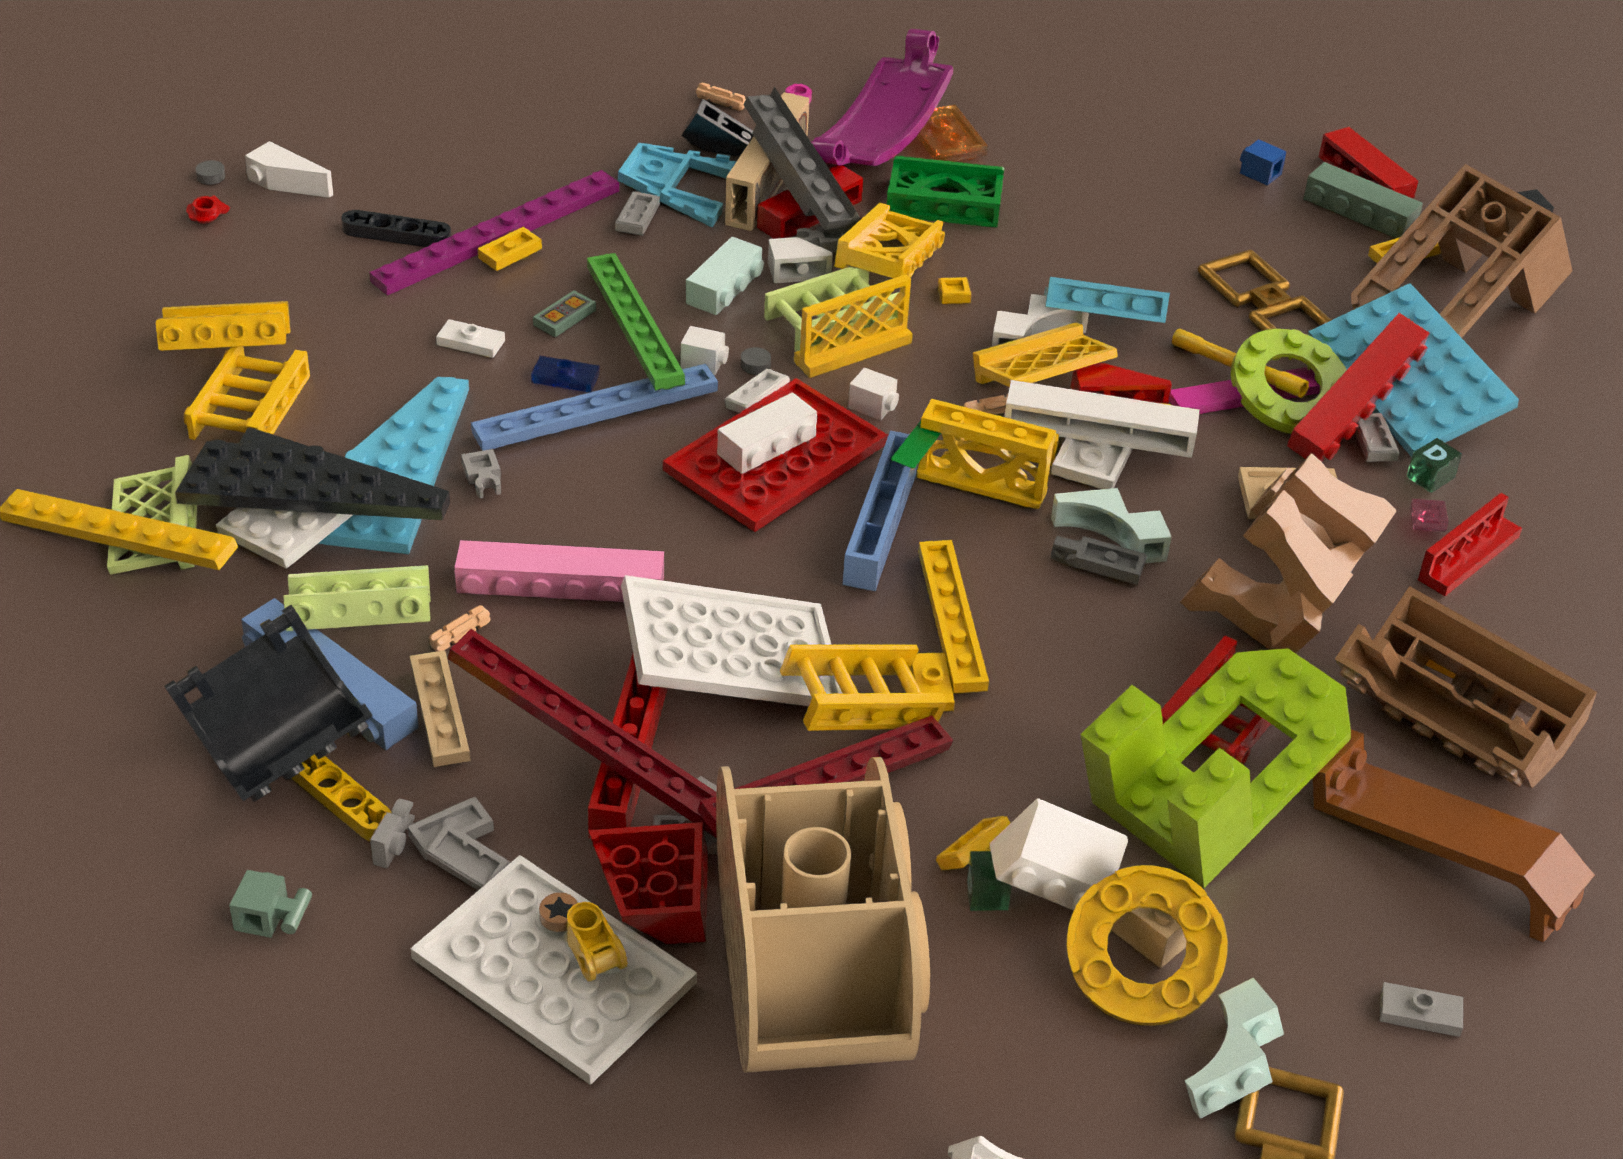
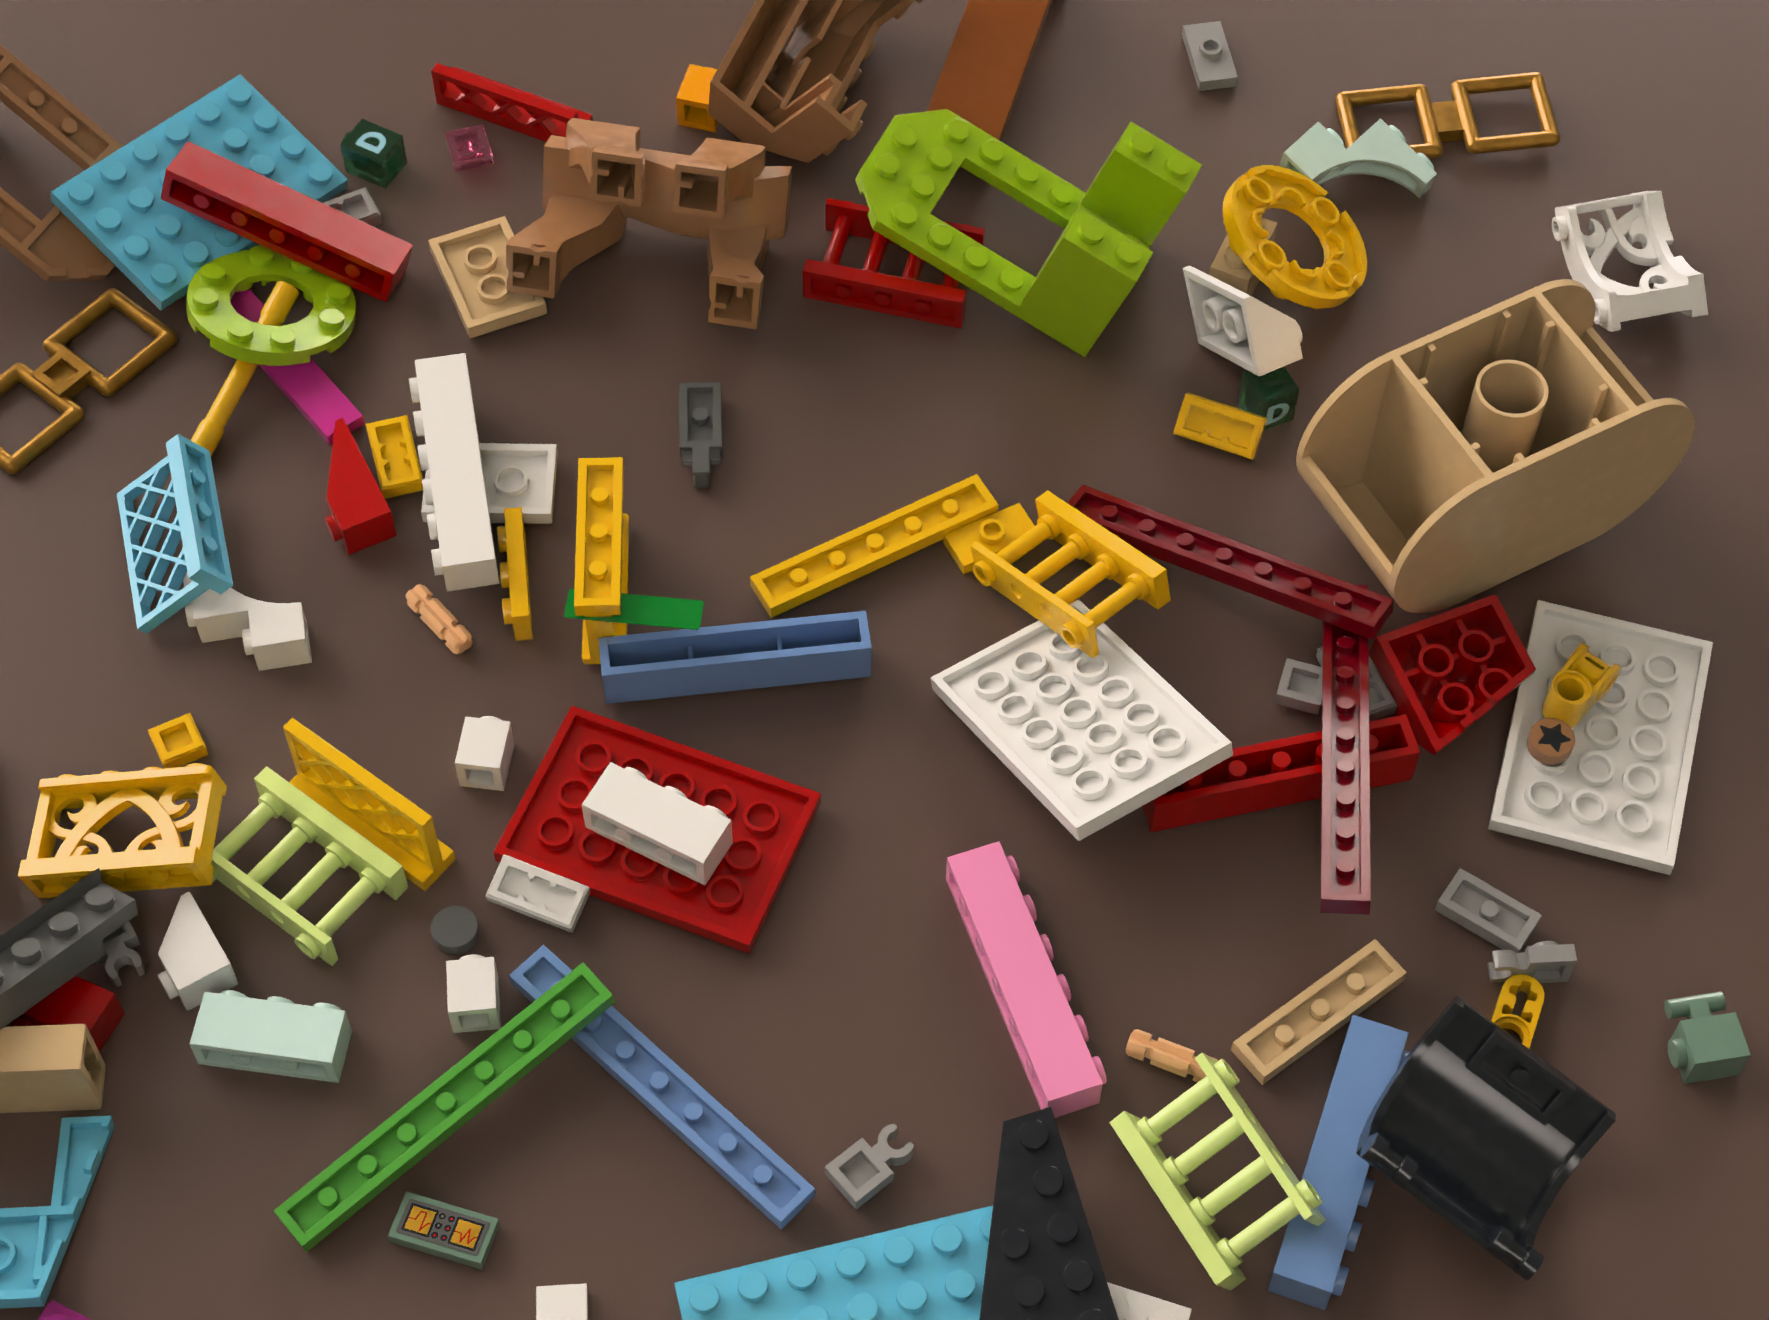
camera: 110 degrees left, 15 degrees up
(464, 857) = (1525, 870): light grey plate -> none
(565, 374) = (592, 1164): clear blue plate -> none
(637, 213) = (135, 1233): light grey plate -> none
(1040, 356) = (326, 602): yellow fence -> none
(1106, 514) = (638, 399): light aqua arch -> none

